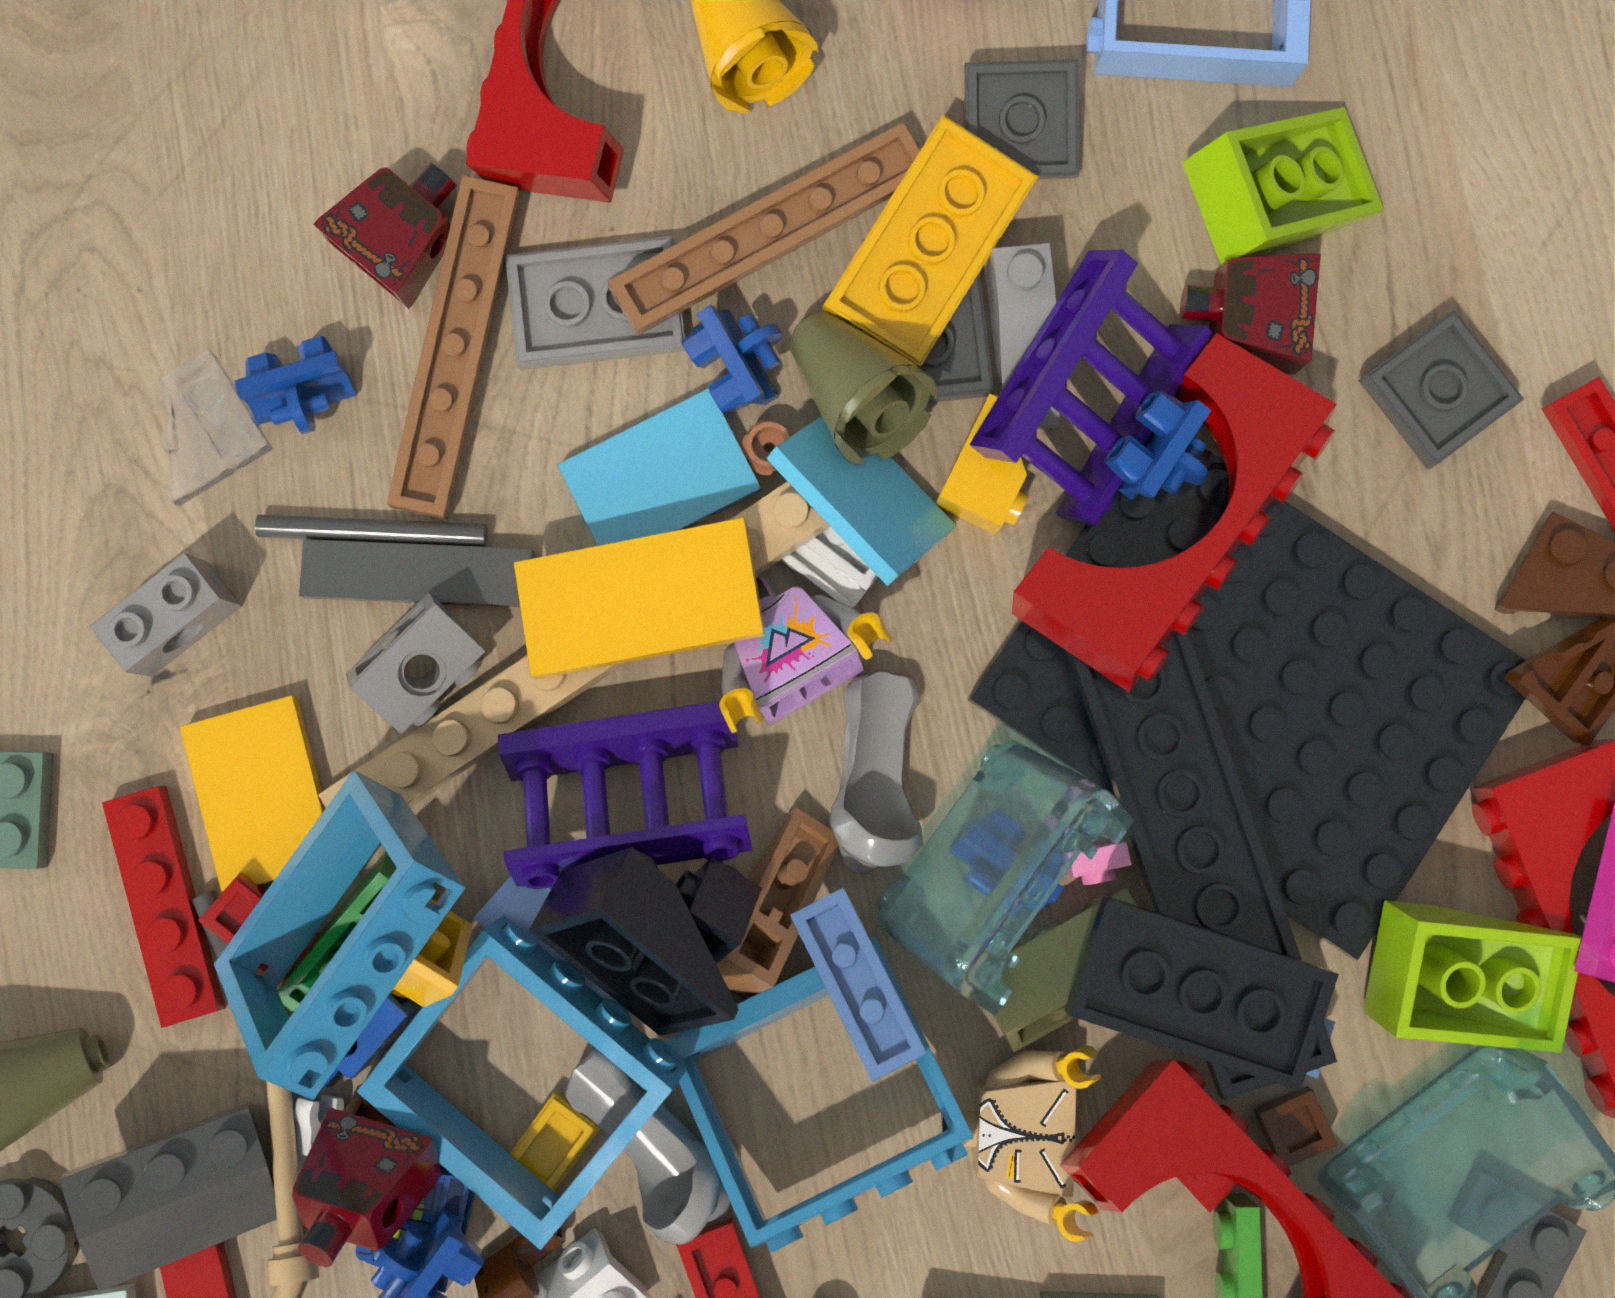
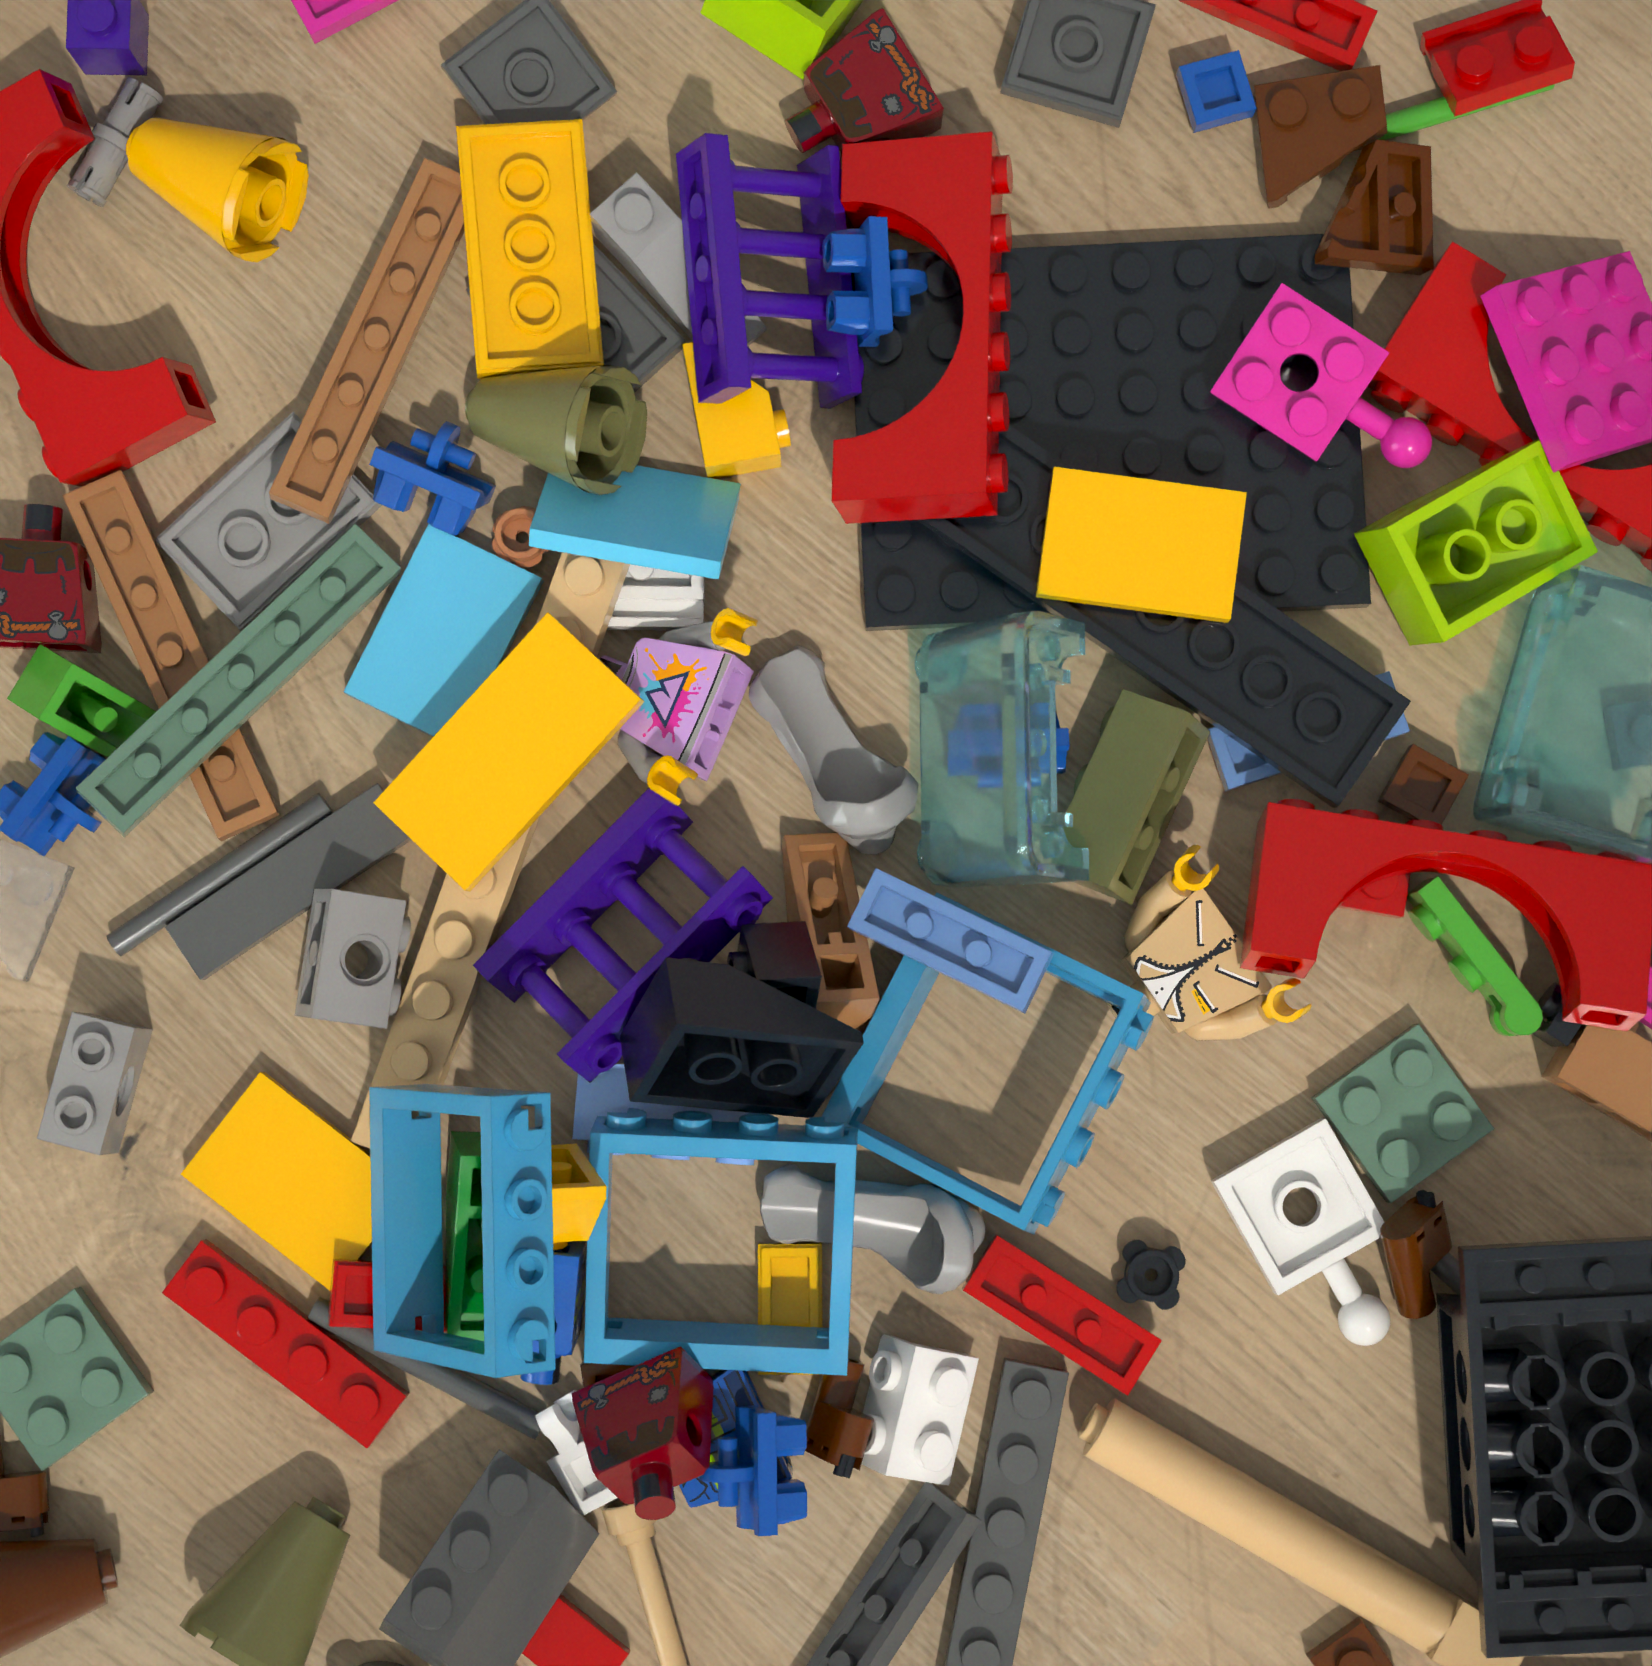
camera: 35 degrees left, 0 degrees up
(288, 1263) = (634, 1547): tan piece -> none
(365, 341) = (77, 702): none -> bright green slope
(484, 401) = (238, 681): none -> sand green plate
(1103, 864) = (1085, 686): bright pink plate -> none
(1201, 993) = (1247, 726): black plate -> none
(1221, 794) = (1141, 544): none -> yellow tile
(1469, 775) = (1345, 368): none -> dark pink plate
(1521, 495) = (1216, 91): none -> blue plate

